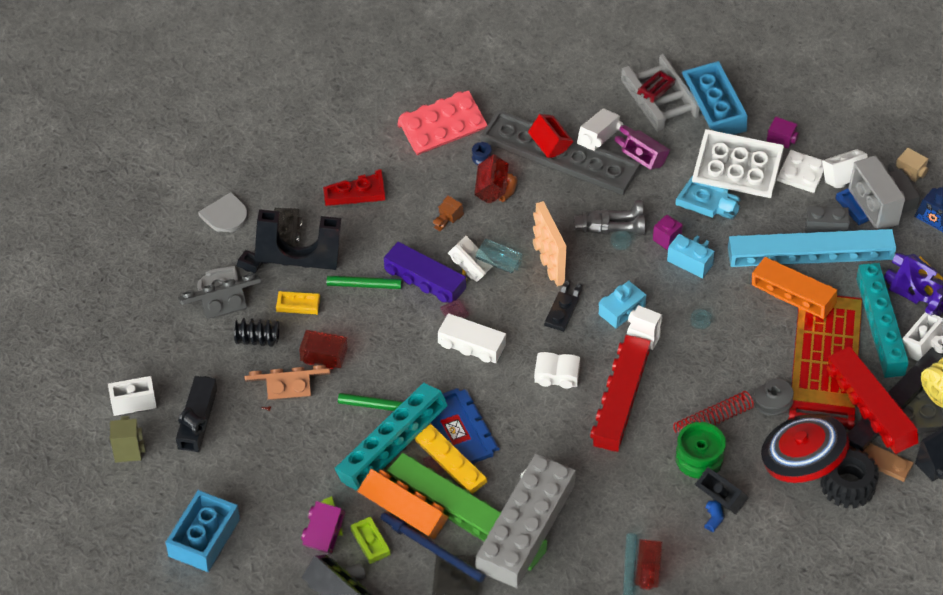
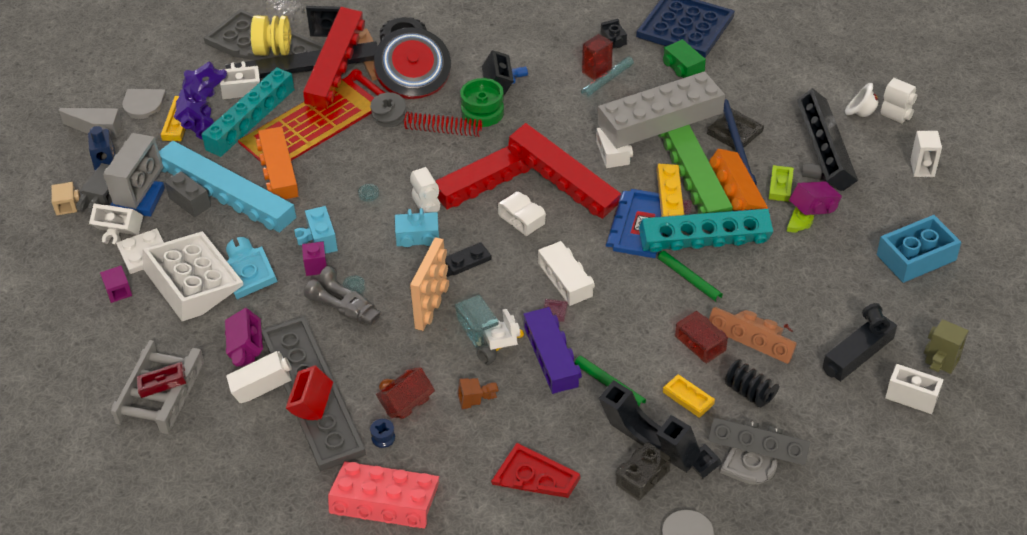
camera: 140 degrees left, 5 degrees down
(555, 414) = (563, 171): none -> red brick
(716, 98) = (125, 338): dark azure slope -> none

